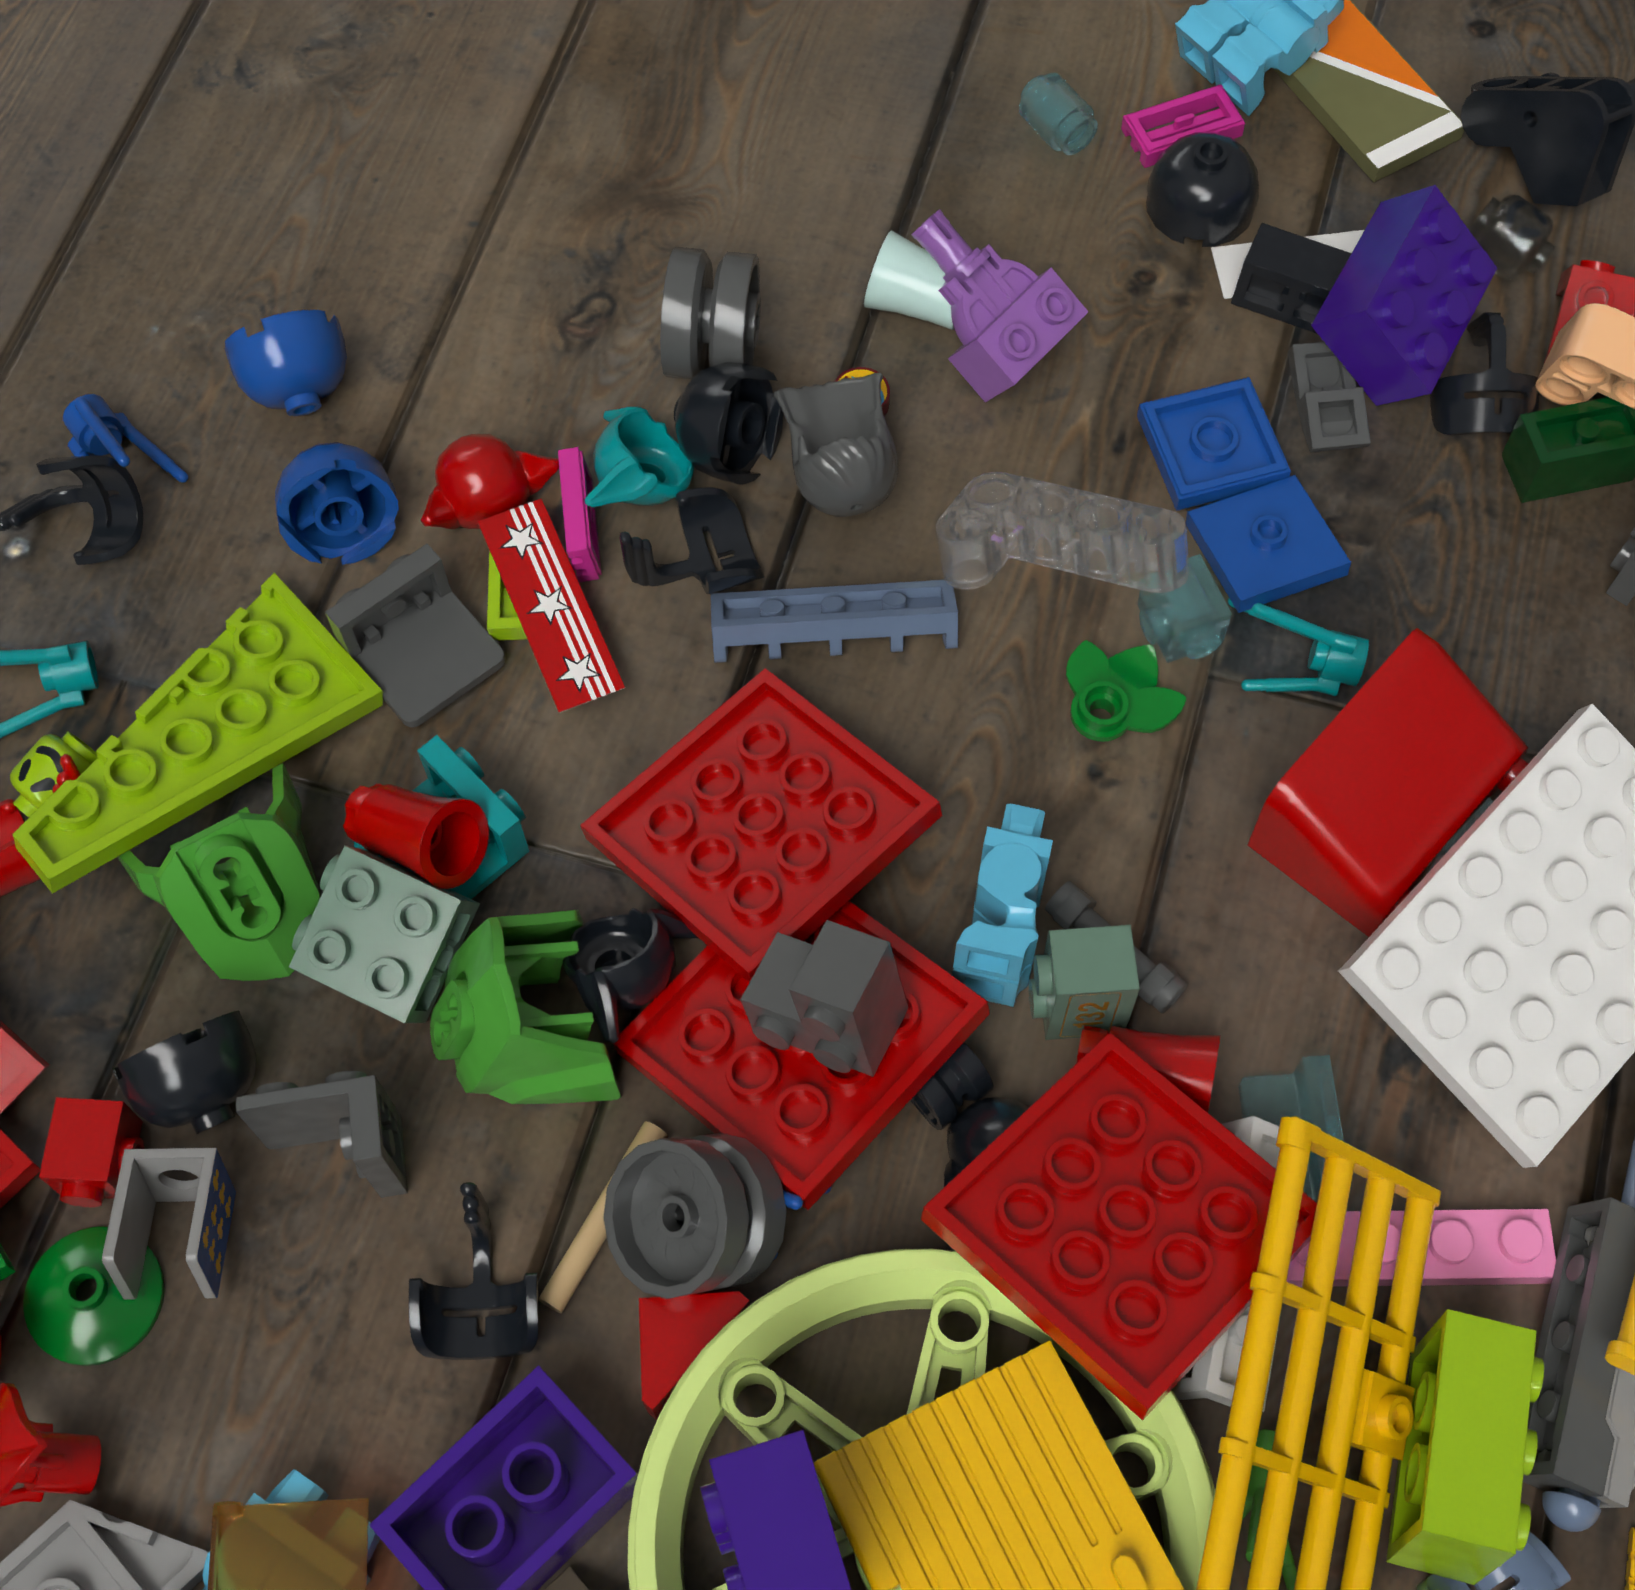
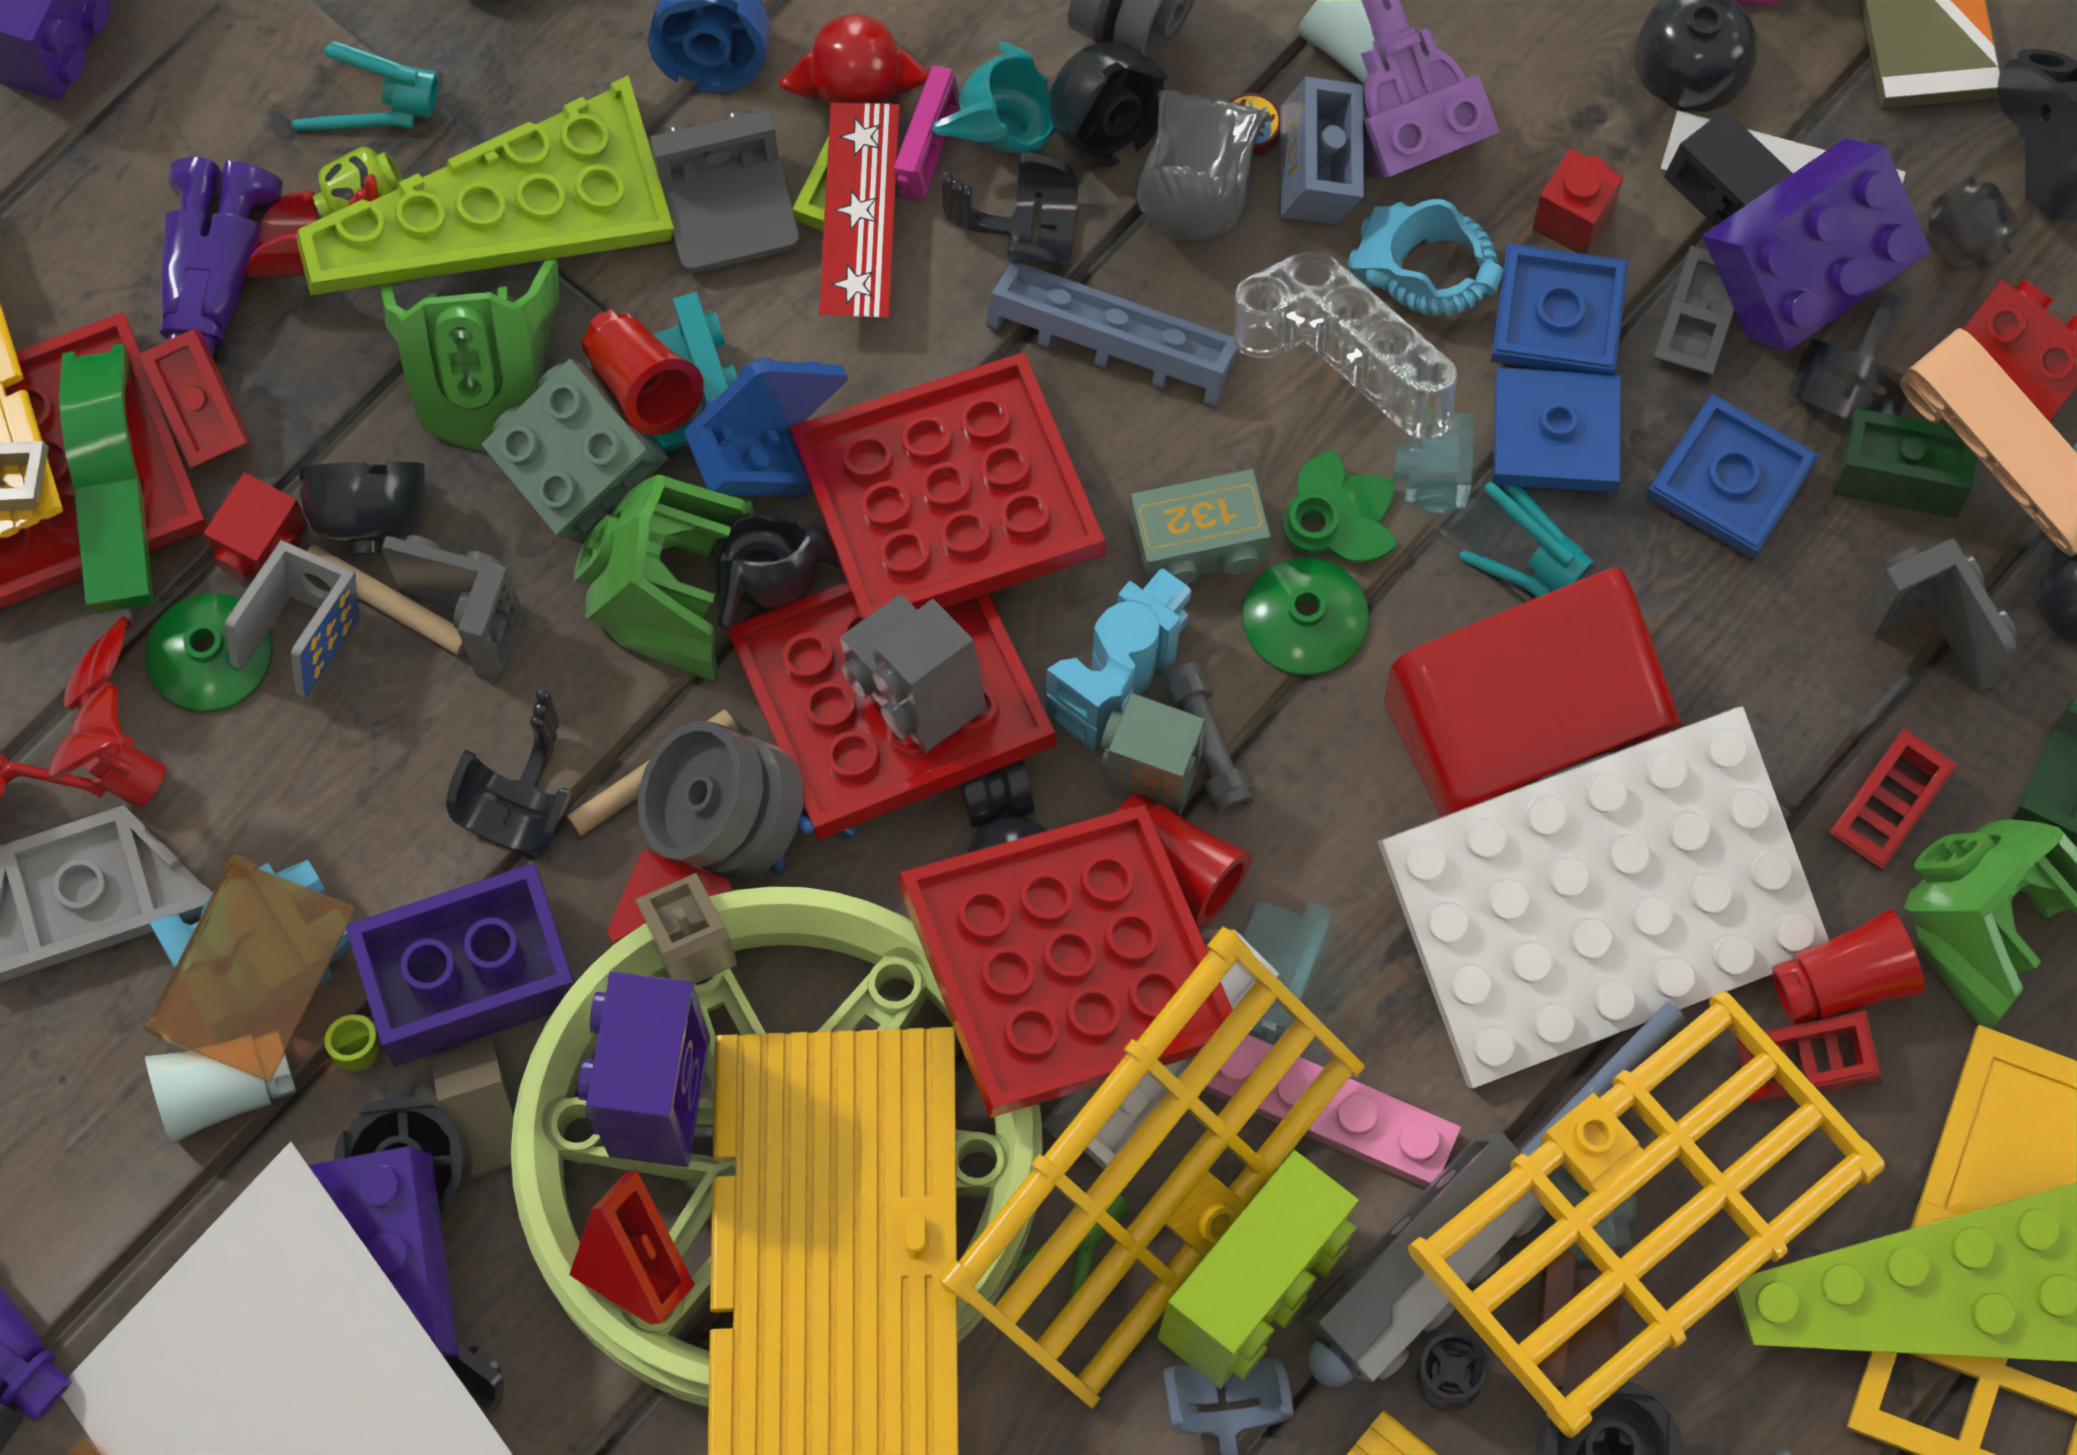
camera: 25 degrees right, 5 degrees up
(276, 1162) = (400, 606): none -> tan bar
(542, 846) = (746, 434): none -> blue bracket
(736, 1365) = (687, 930): none -> dark tan slope
(941, 388) = (1321, 150): none -> sand blue brick
(1007, 757) = (1201, 527): none -> sand green brick
(1039, 427) = (1399, 228): none -> medium azure piece
(1132, 822) = (1300, 642): none -> green dish
(1180, 346) = (1577, 201): none -> red brick
(1438, 520) = (1732, 476): none -> blue plate

